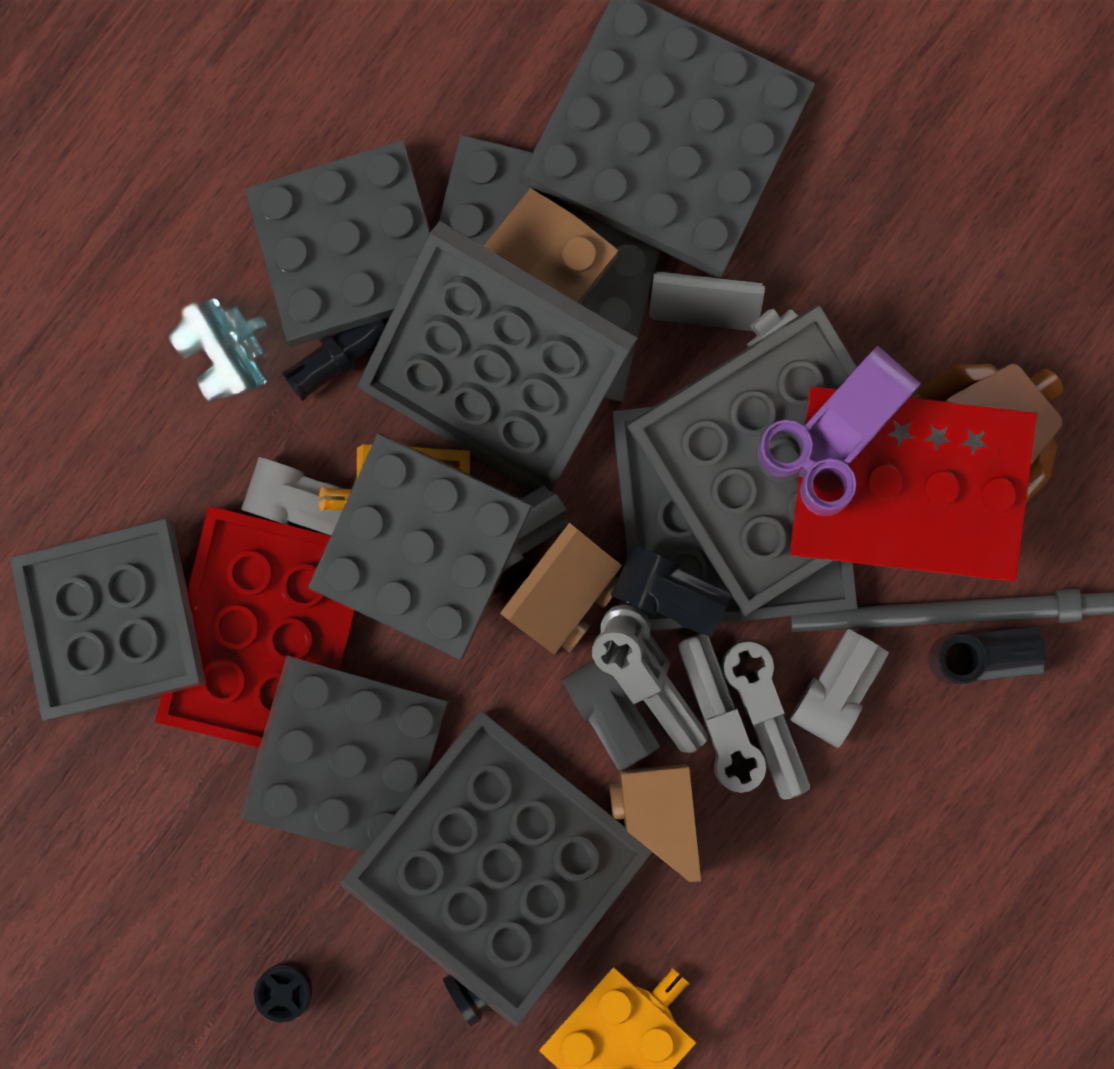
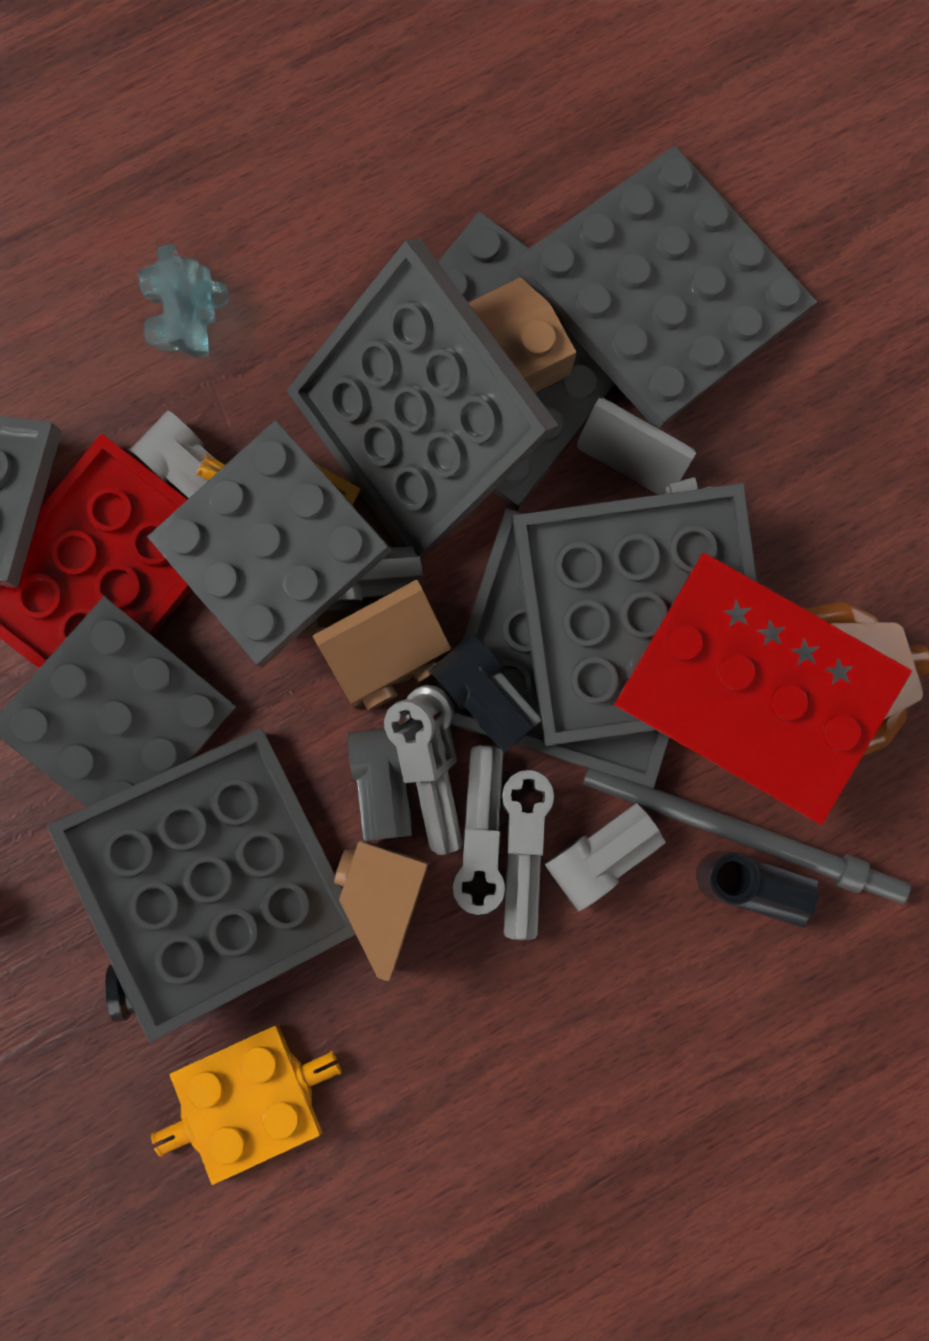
camera: 25 degrees right, 5 degrees down
(332, 357) = (274, 353): black pin -> none
(340, 240) = (322, 250): dark grey plate -> none
(841, 429) = (715, 600): medium lavender piece -> none

